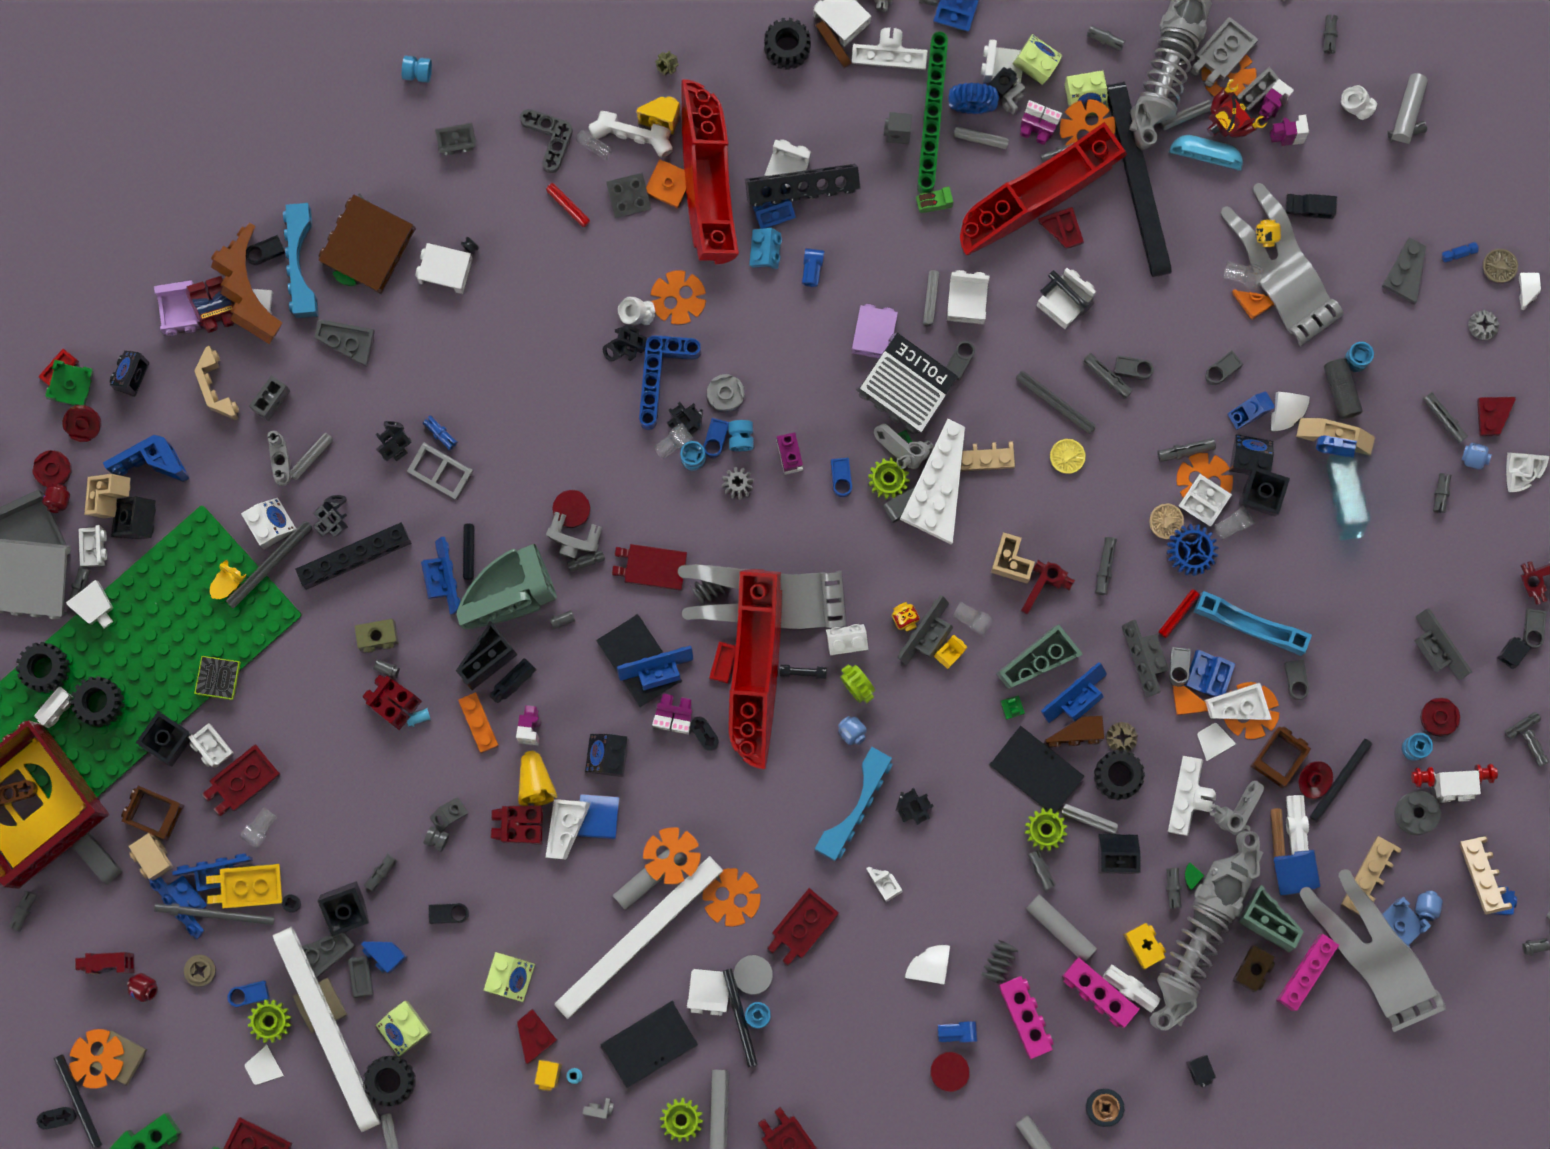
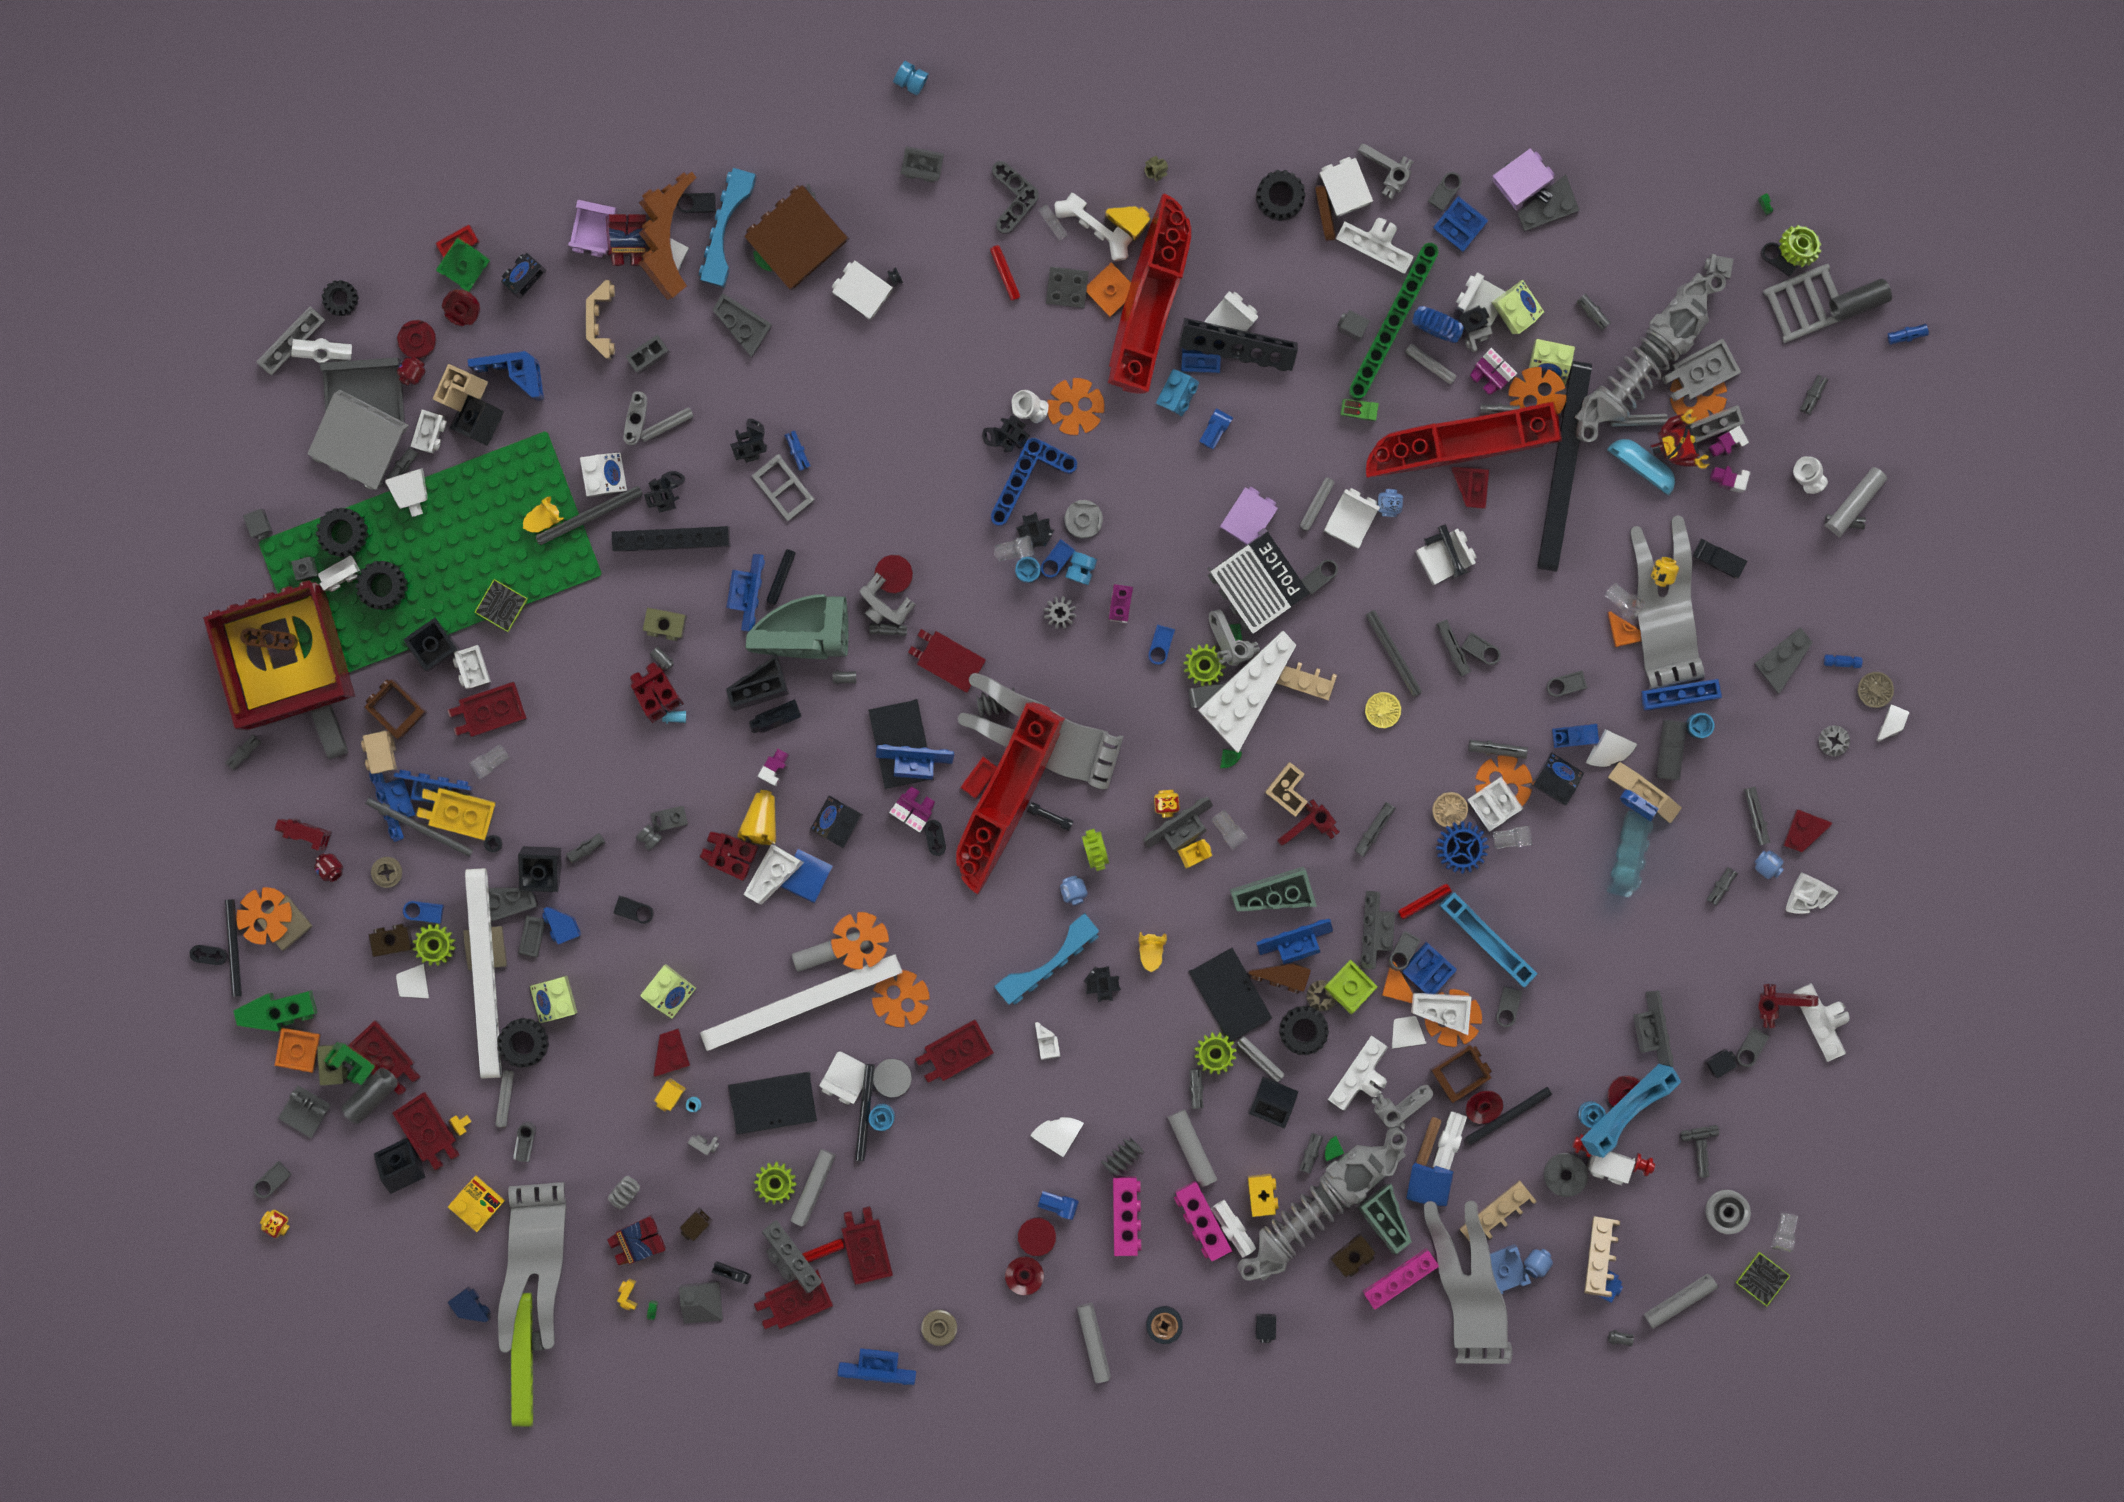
camera: 20 degrees right, 10 degrees up
(19, 713) = (305, 568): none -> dark grey brick
(238, 1029) = (402, 936): none -> dark brown brick
(478, 722) = (728, 743): orange plate -> none
(847, 639) = (1102, 803): white brick -> none
(946, 554) = (1229, 758): none -> green tile
(947, 757) = (1151, 950): none -> yellow piece
(961, 1106) = (1021, 1285): none -> dark red dish
(997, 270) = (1390, 503): none -> medium blue head
(1012, 707) = (1232, 927): green tile -> none
(1145, 718) = (1350, 986): none -> lime tile
(1264, 491) = (1553, 820): black slope -> none
(1329, 337) = (1681, 694): none -> blue brick
(1440, 753) = (1653, 1086): none -> dark azure arch

